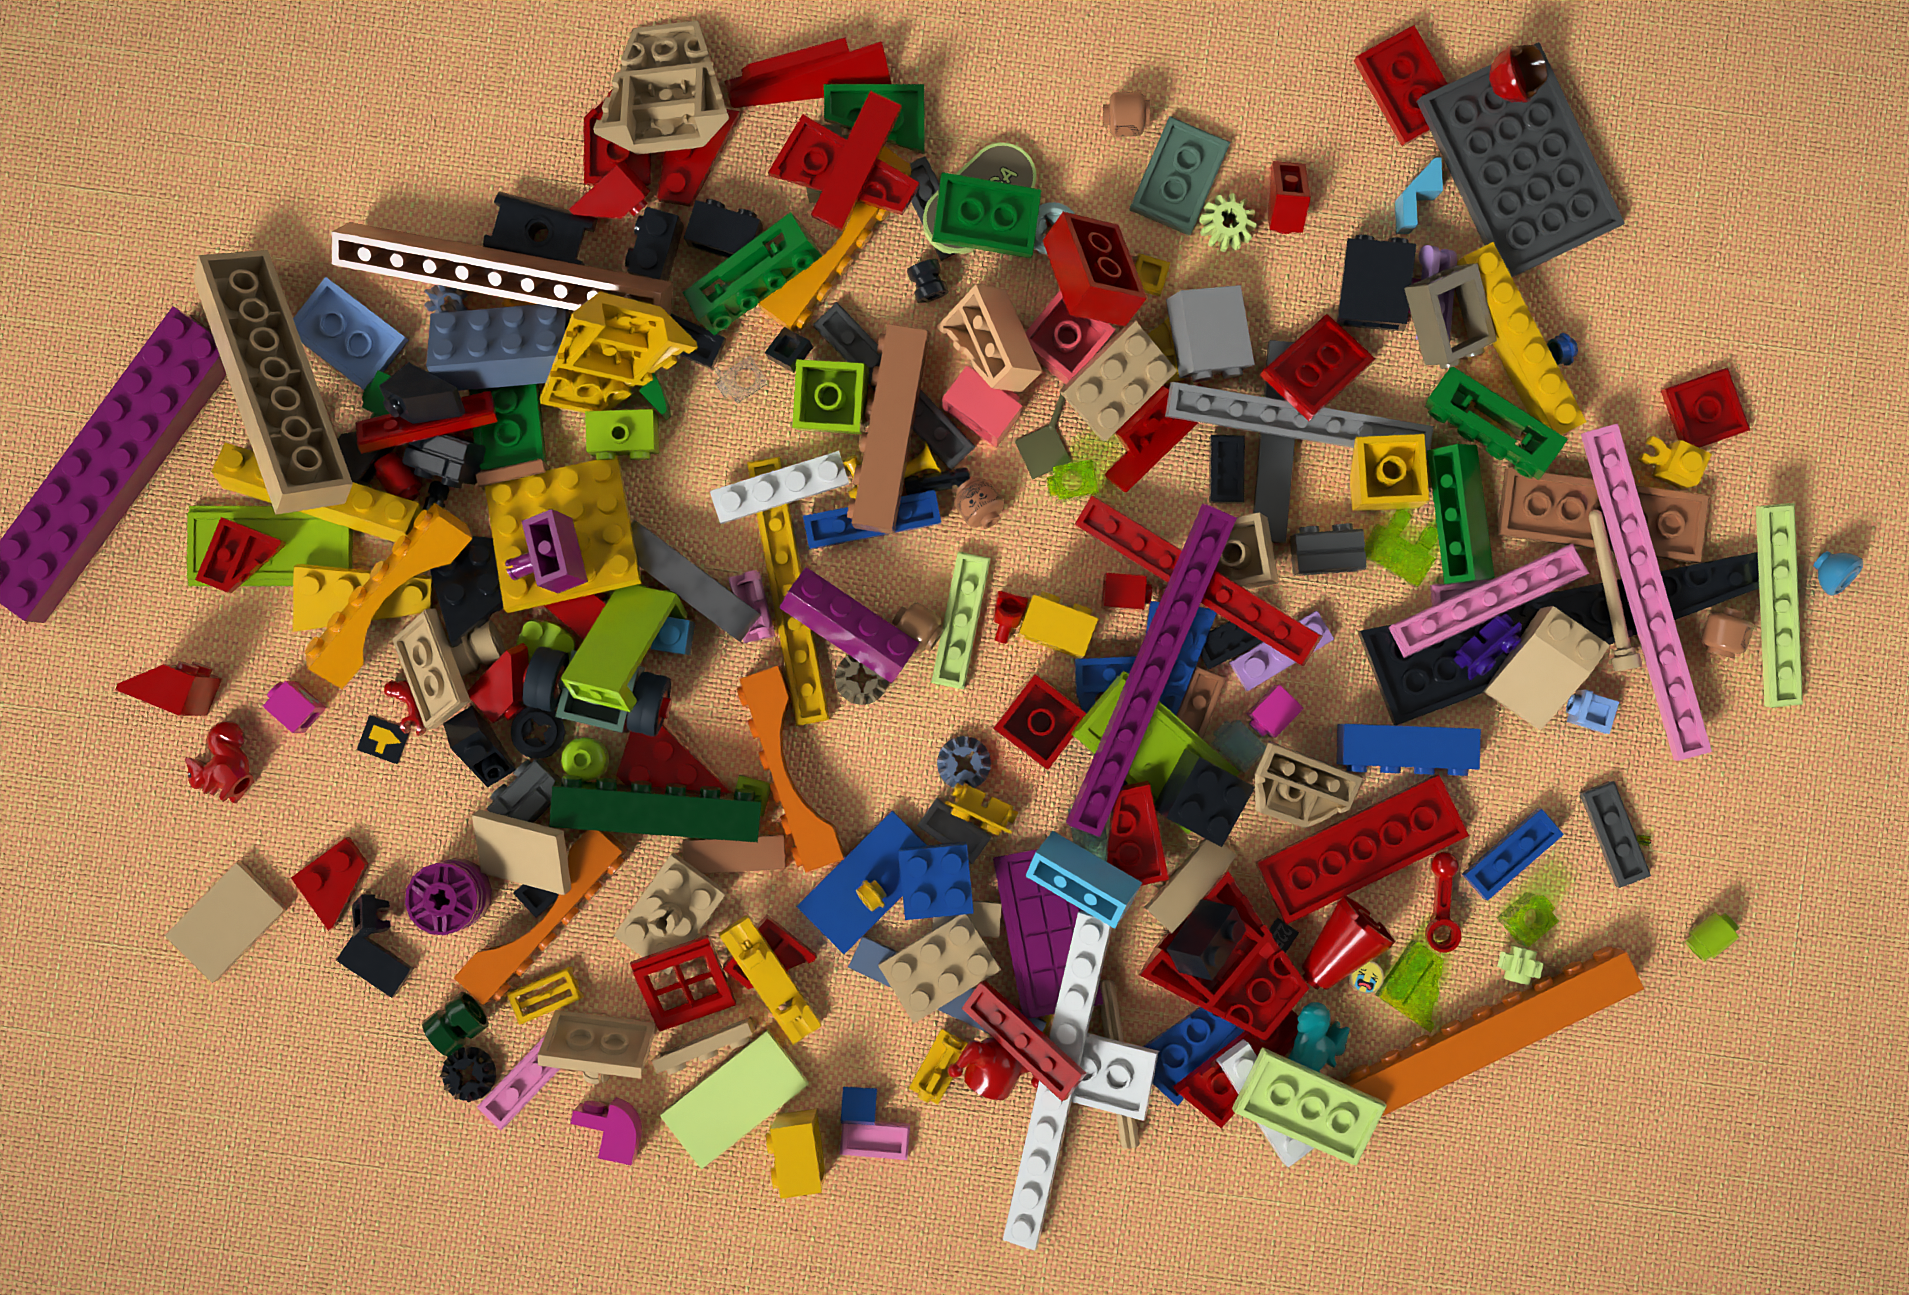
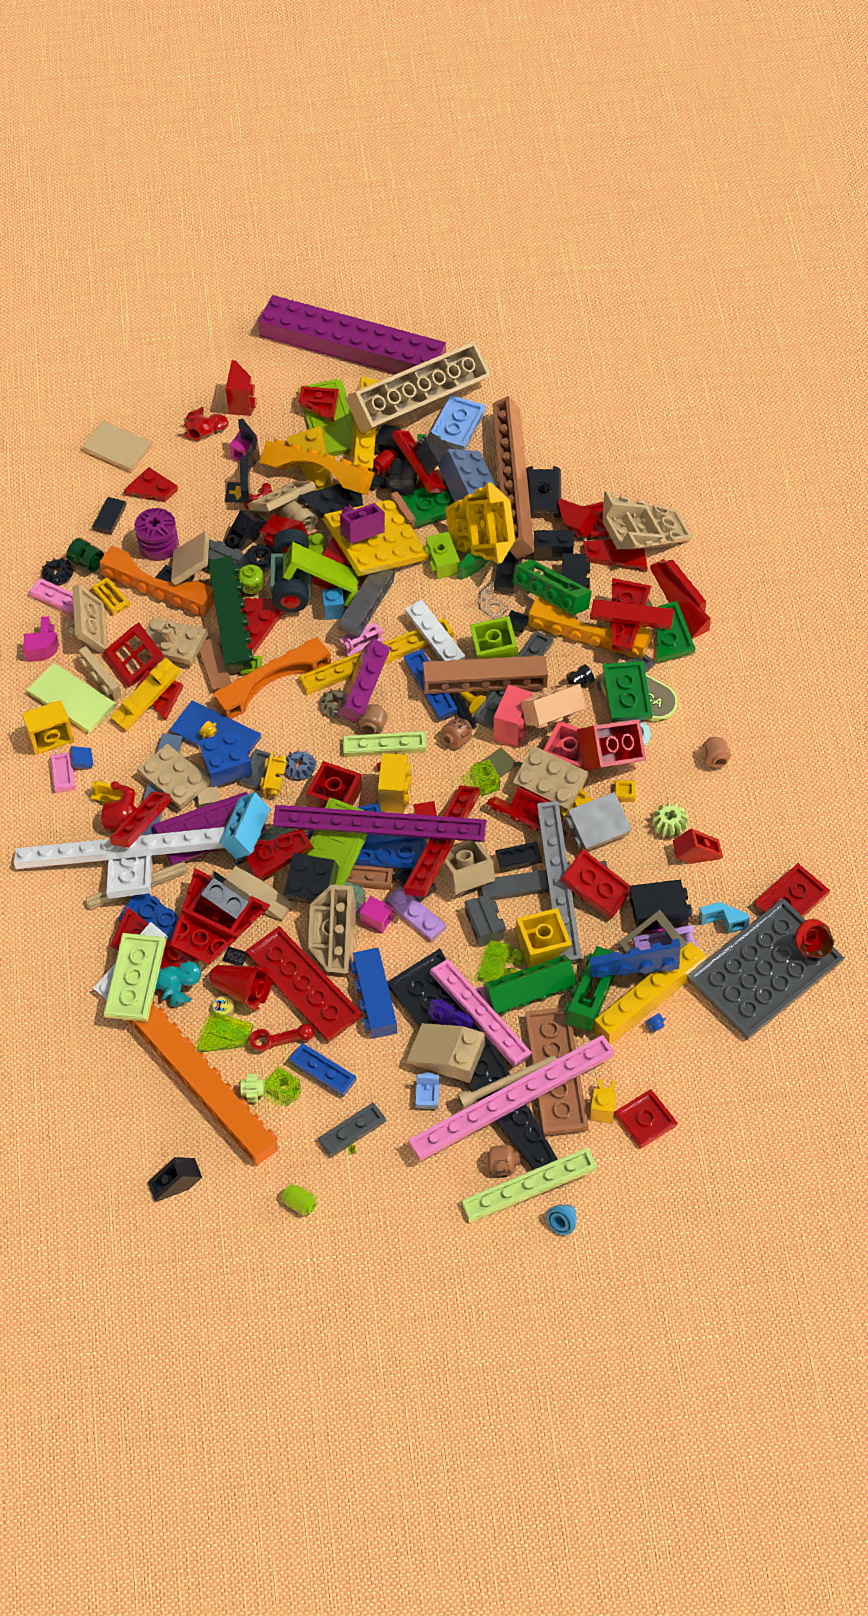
camera: 80 degrees right, 30 degrees down
(347, 715) = (247, 461): none -> black piece
(365, 918) = (134, 502): black tile -> none
(437, 300) = (486, 456): sand blue gear -> none
(1179, 176) = (692, 791): sand green tile -> none
(1500, 344) = (637, 961): none -> blue wing
(1636, 1107) = (175, 1178): none -> black slope

